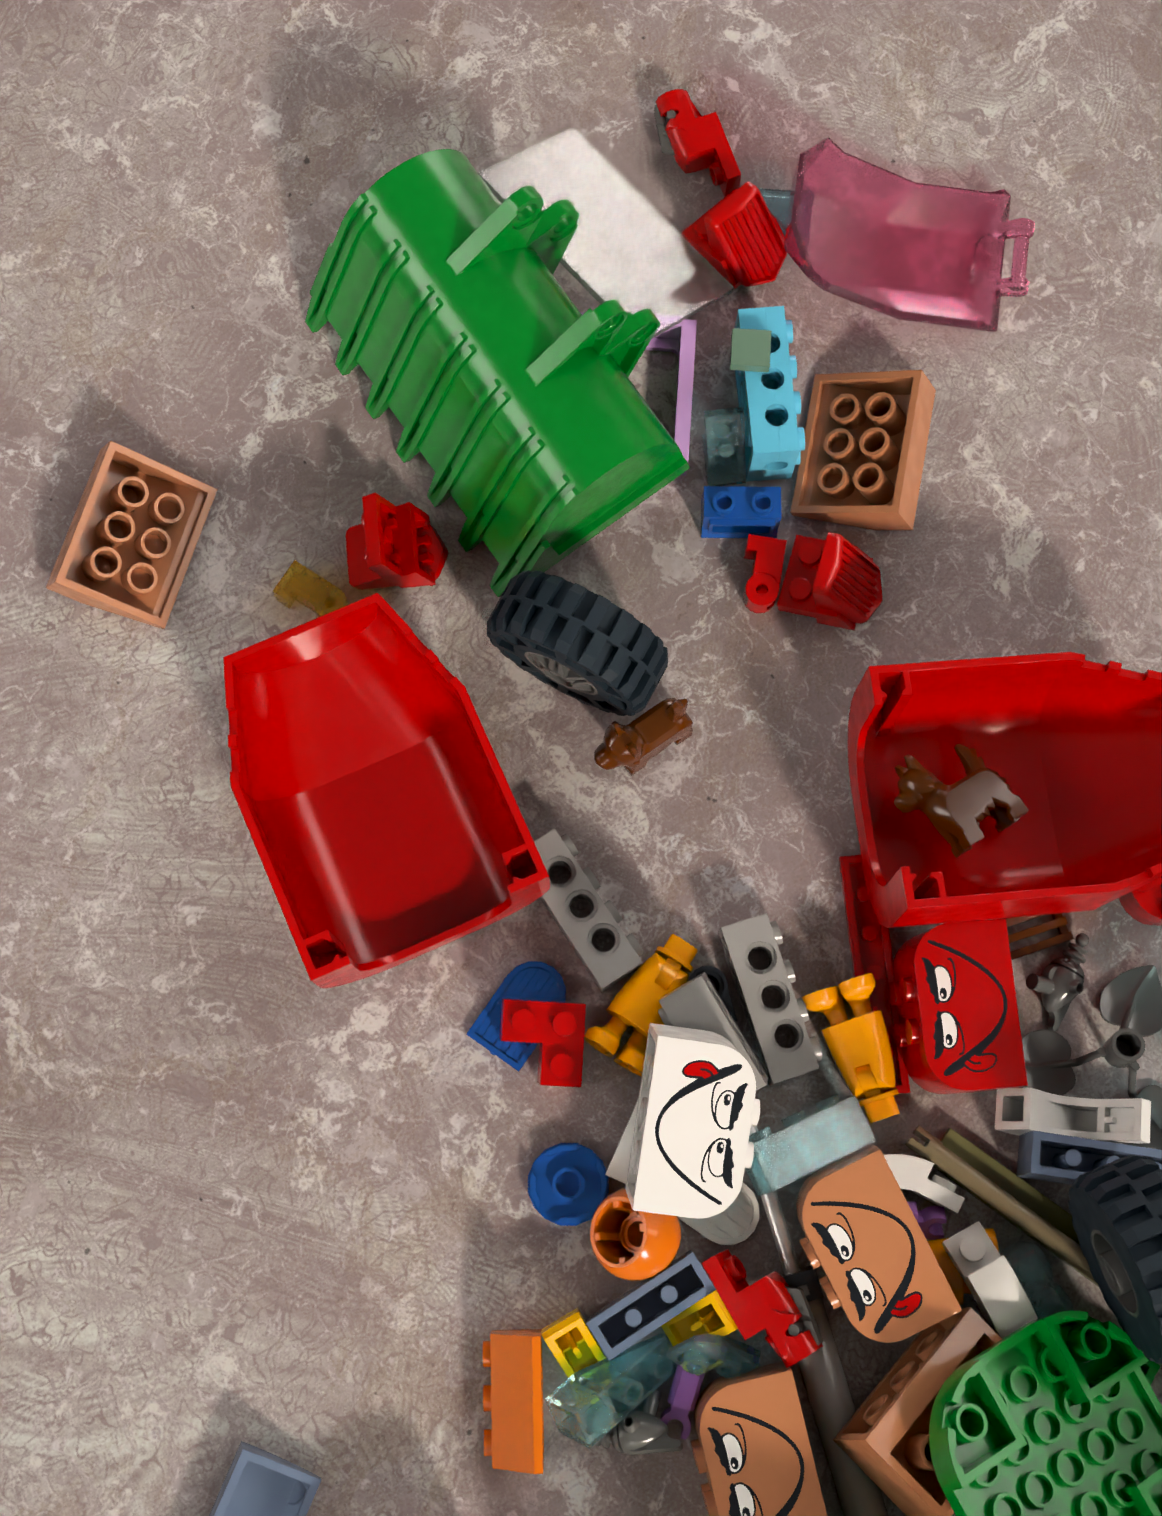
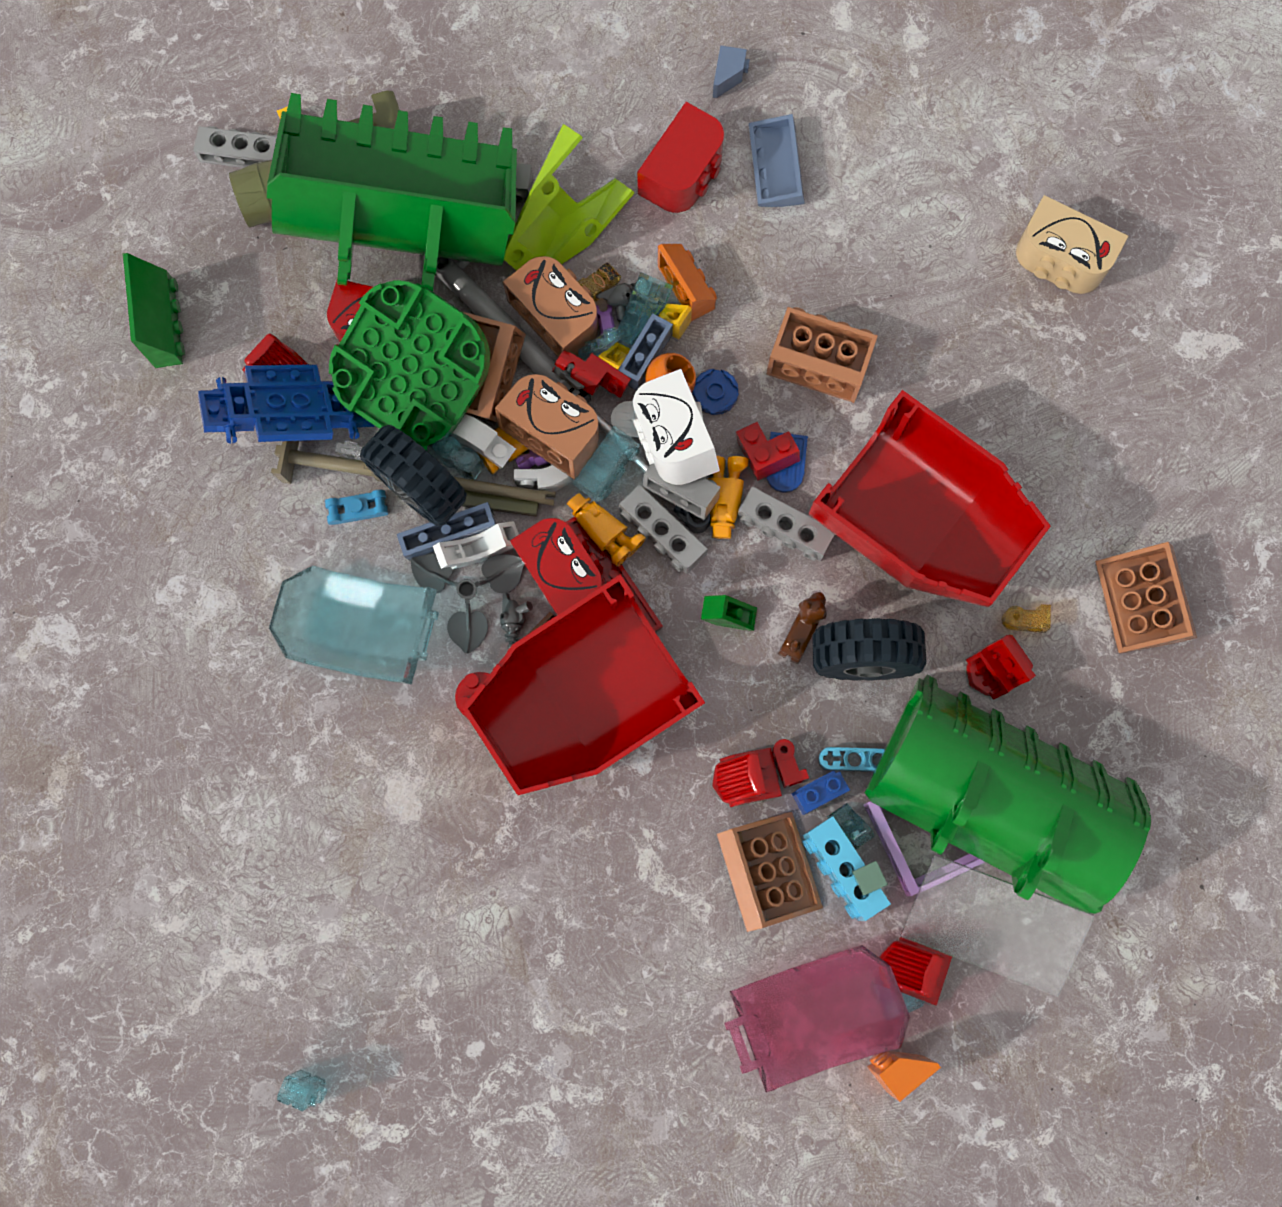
camera: 155 degrees right, 0 degrees up
(379, 1116) = (821, 354): none -> nougat brick
(656, 519) = (865, 753): none -> medium azure beam
(659, 1477) = (601, 280): none -> clear yellow leg
(695, 139) = (980, 1024): red plate -> none
(735, 822) = (728, 612): none -> green slope
(832, 108) = (901, 1072): none -> orange slope
(961, 806) = (613, 674): reddish brown animal -> none

